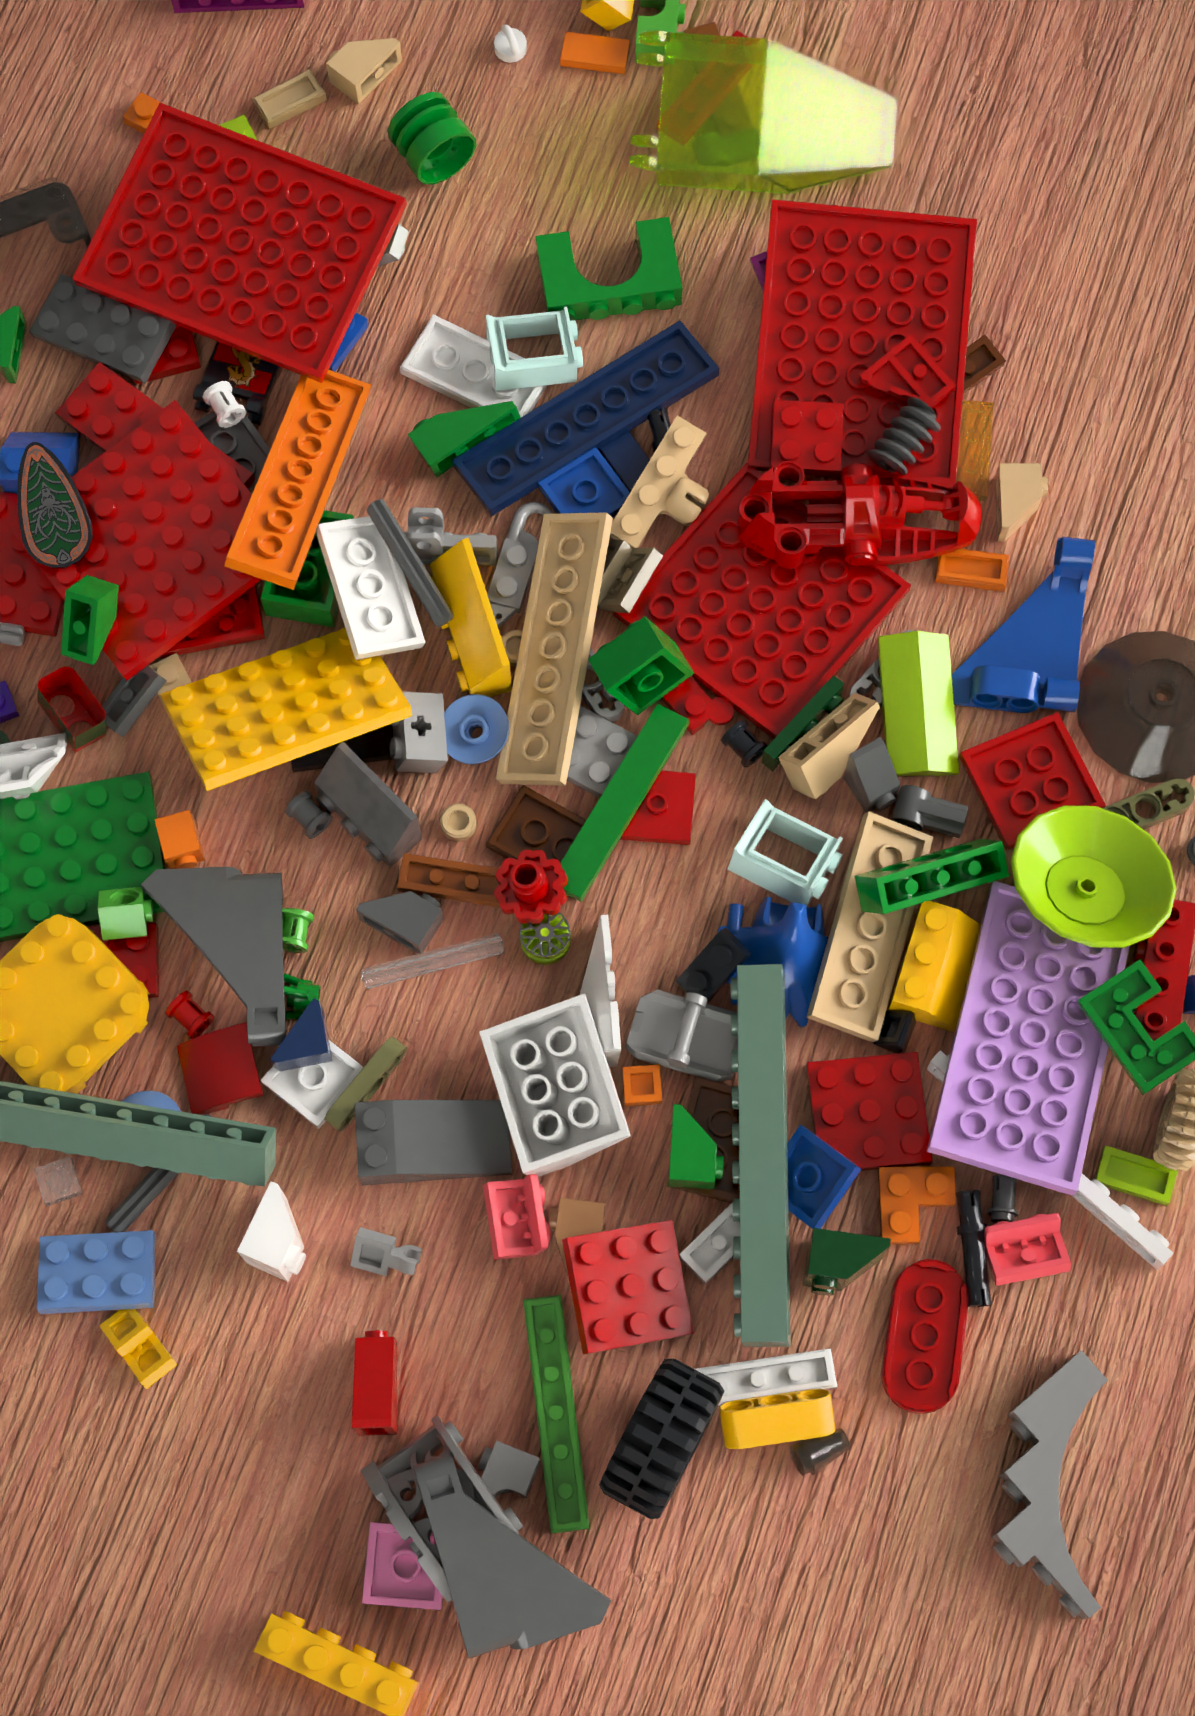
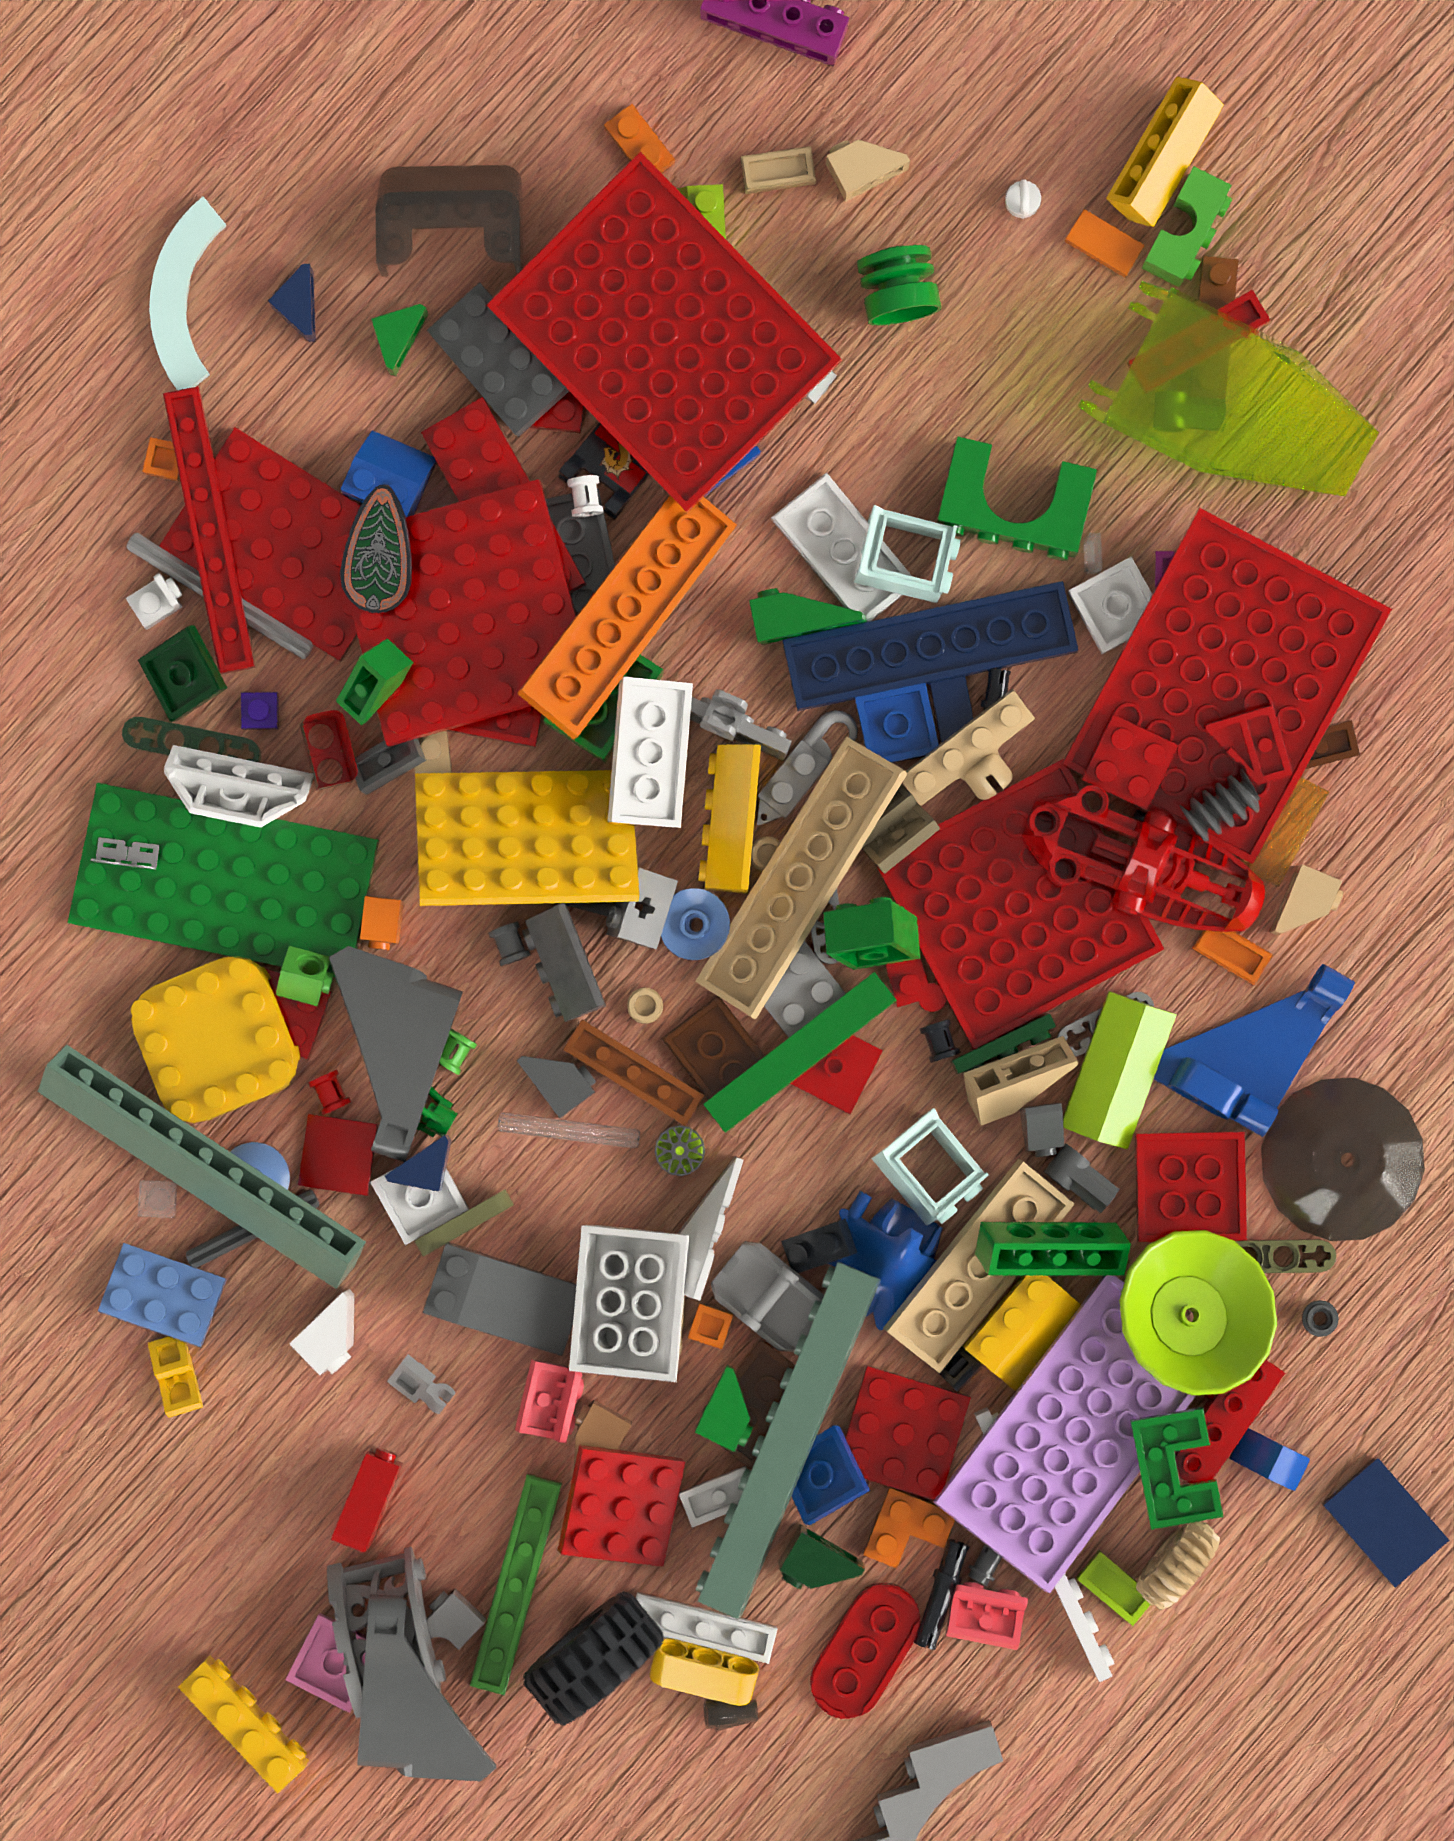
camera: 20 degrees right, 15 degrees up
(409, 562) = (696, 744): dark grey axle -> none
(531, 886) = (684, 1104): red plant -> none
(696, 289) = (1093, 553): none -> clear tile
(730, 324) = (1112, 603): none -> white plate

